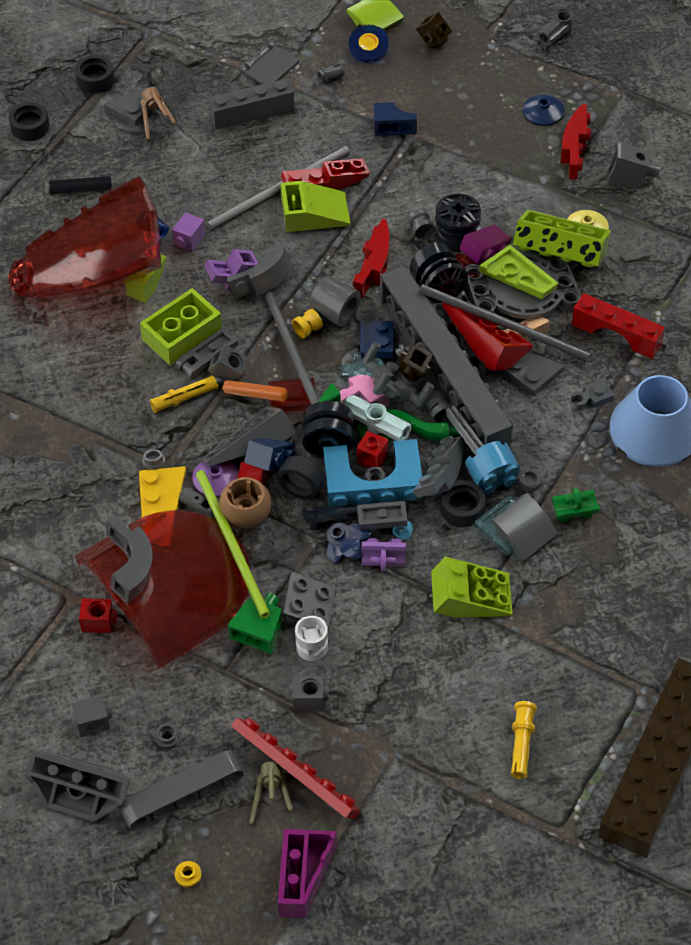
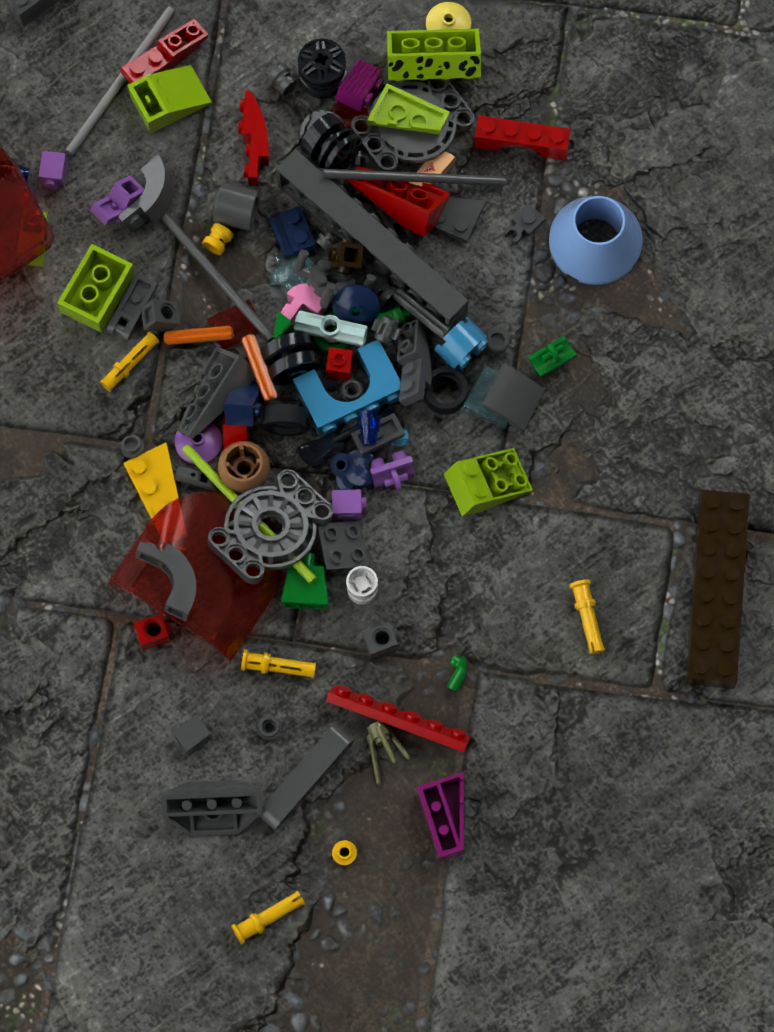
camera: 20 degrees left, 20 degrees up
(72, 908) = (257, 922): none -> yellow pin
(189, 679) = (265, 663): none -> yellow pin
(243, 577) = (274, 503): none -> dark grey piece
(295, 426) = (259, 368): none -> orange axle
(329, 567) = (348, 504): none -> medium lavender brick
(373, 748) = (459, 674): none -> green arm
(376, 499) = (369, 426): none -> clear blue cone
(414, 397) = (356, 297): none -> dark blue dish
(427, 432) = (386, 329): none -> dark grey gear

